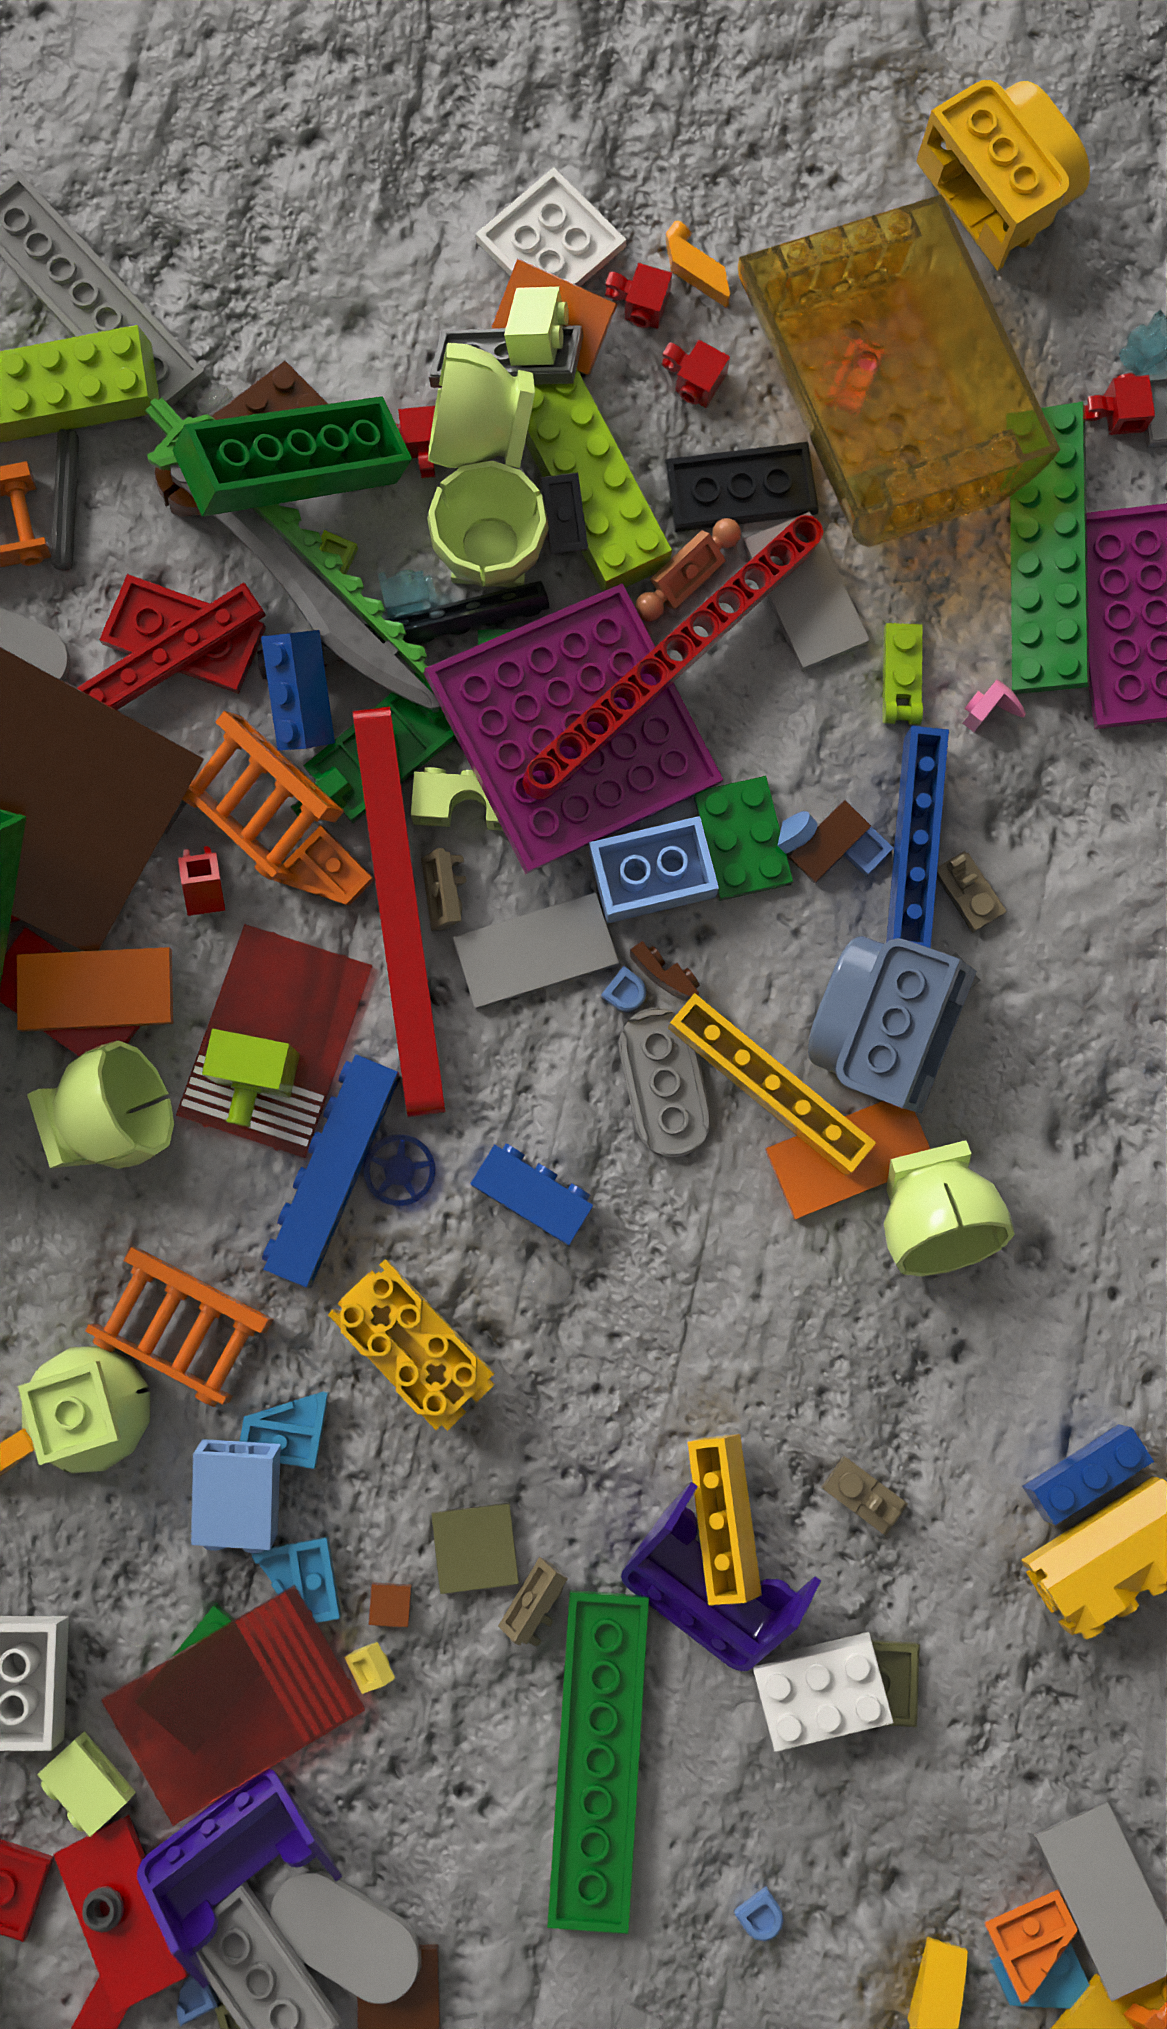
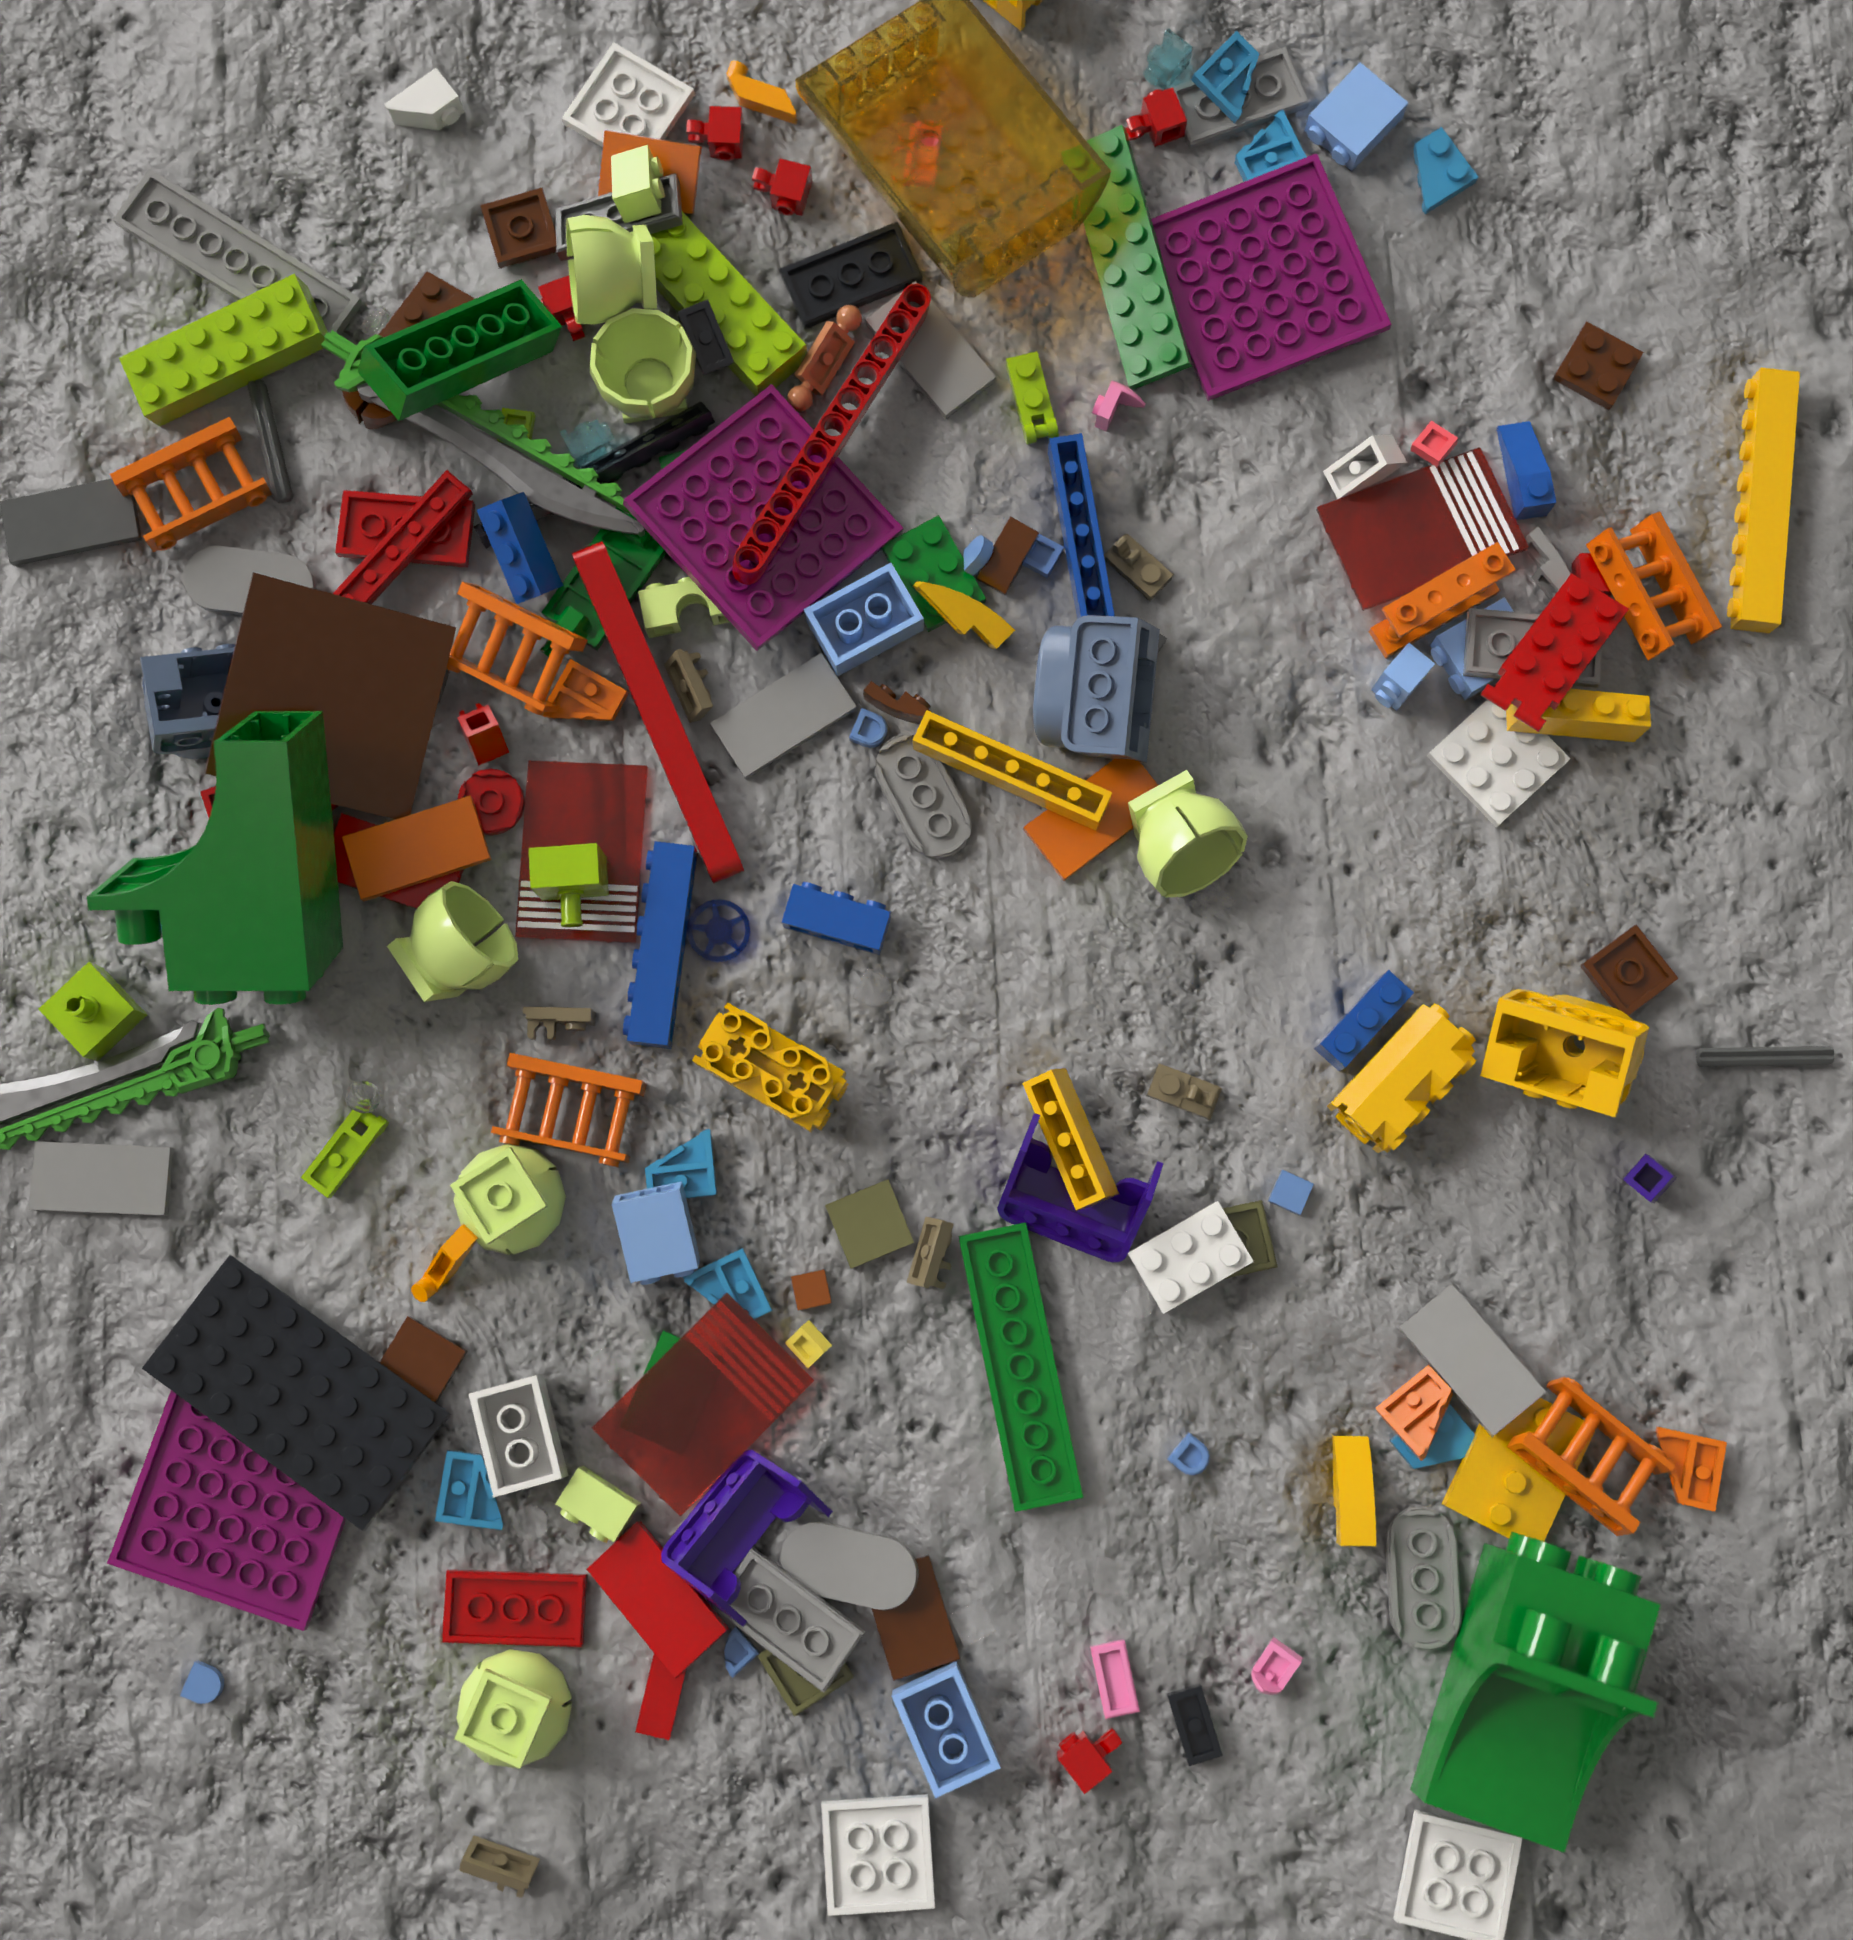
camera: 10 degrees left, 0 degrees up
(91, 1909) = (631, 1596): dark grey plate -> none
(198, 957) = (496, 799): none -> red tile
(213, 1226) = (574, 1018): none -> dark tan plate
(334, 180) = (426, 104): none -> white slope
(398, 340) = (520, 227): none -> reddish brown plate
(767, 895) = (966, 613): none -> yellow slope
(953, 1644) = (1290, 1192): none -> medium blue tile

